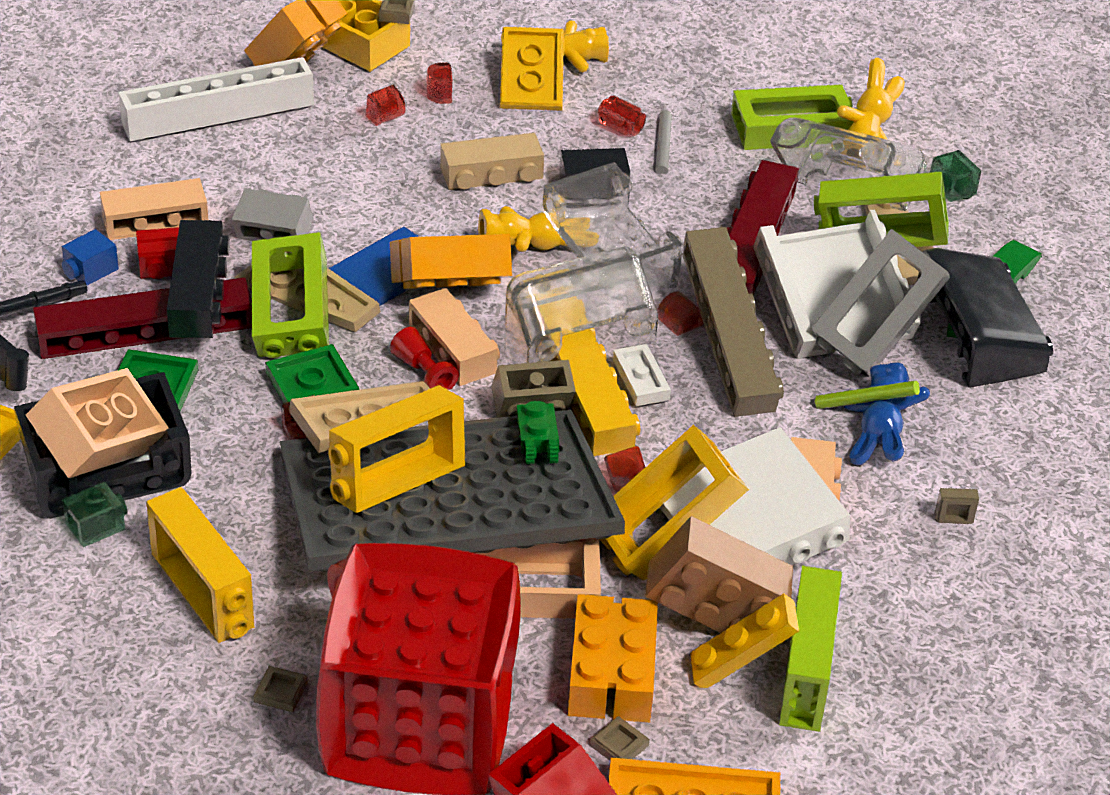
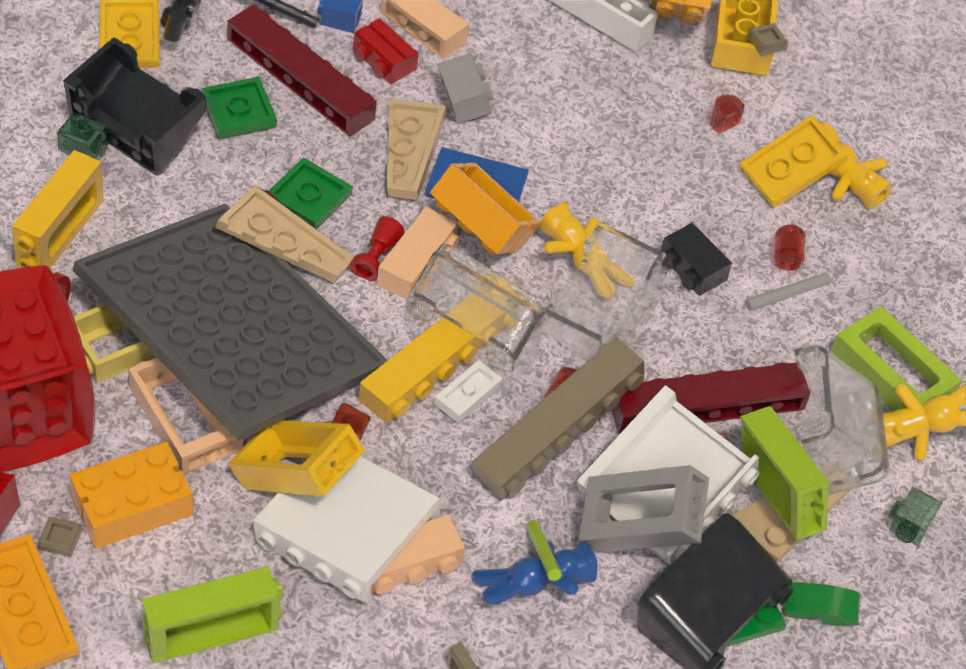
camera: 55 degrees right, 10 degrees up
(97, 422) = (128, 86): light nougat brick -> none
(196, 279) = (339, 71): black brick -> none
(297, 335) = (386, 150): lime piece -> none
(385, 105) = (665, 92): clear red brick -> none
(392, 476) = (209, 276): yellow piece -> none
(491, 161) = (652, 188): tan brick -> none
(532, 382) = (383, 323): dark tan brick -> none
(538, 431) = (328, 347): green hinge -> none
(714, 576) = (226, 521): medium nougat brick -> none
(744, 641) = (182, 565): yellow plate -> none

